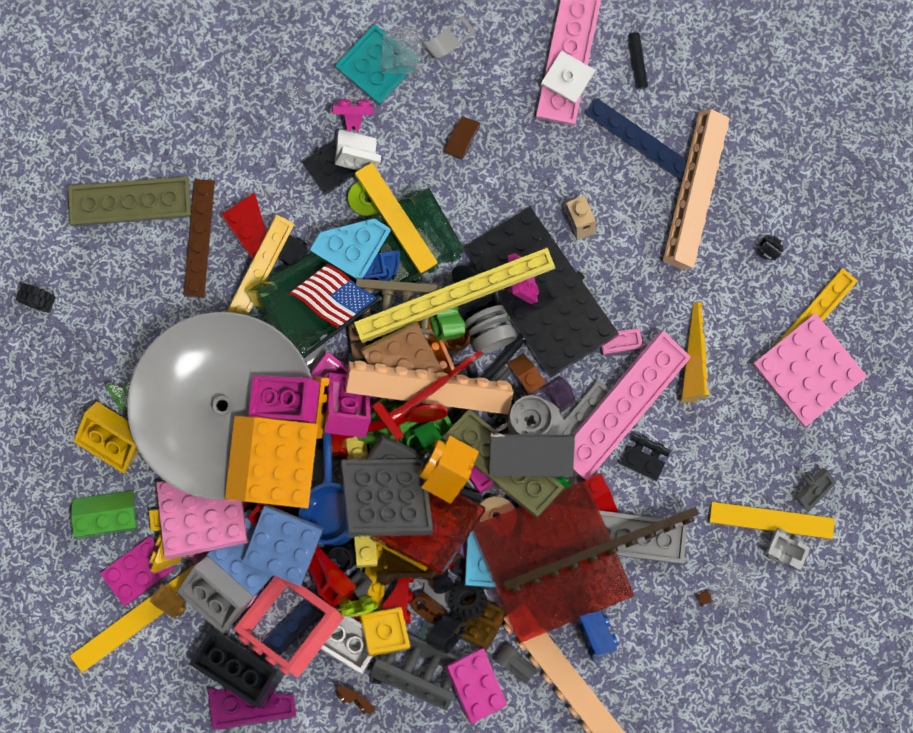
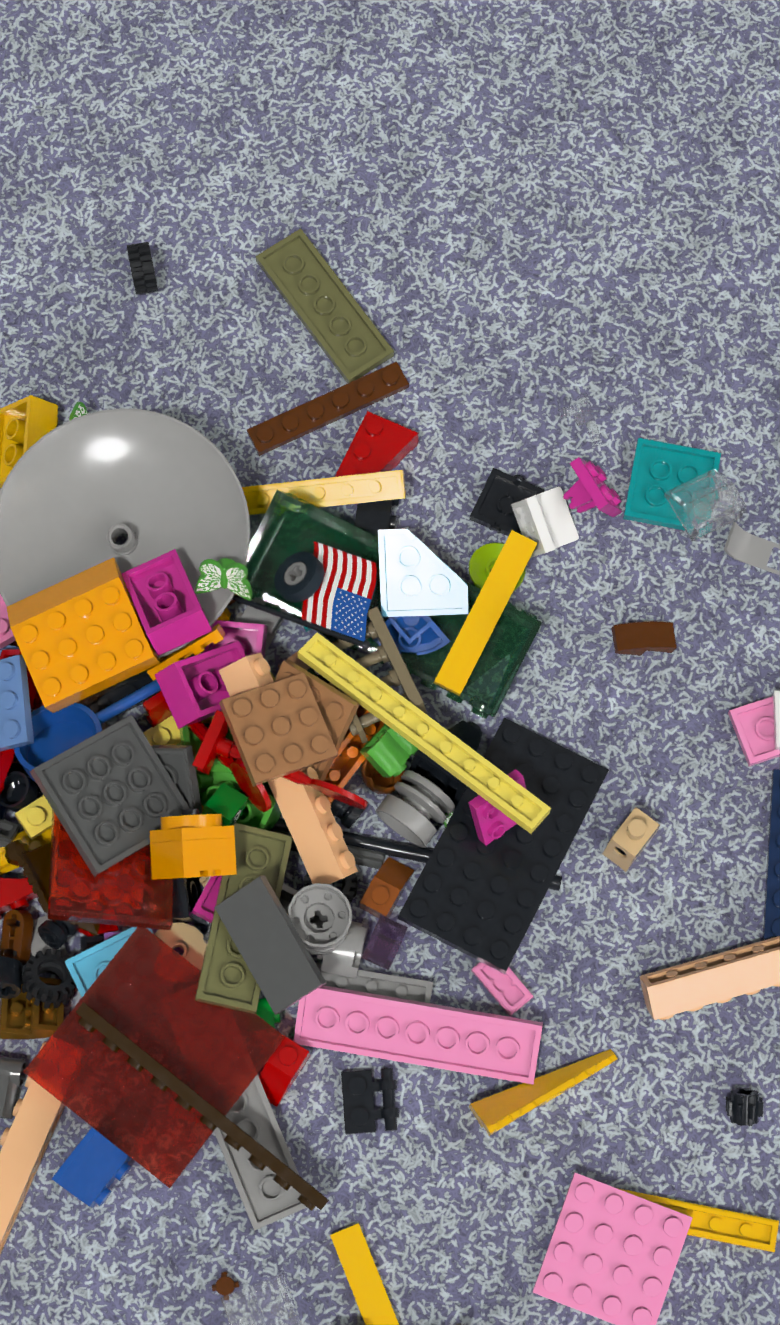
camera: 60 degrees right, 5 degrees down
(290, 353) = (224, 574): none -> bright green animal
(318, 314) = (291, 584): none -> black bush
(406, 376) = (278, 729): none -> medium nougat plate

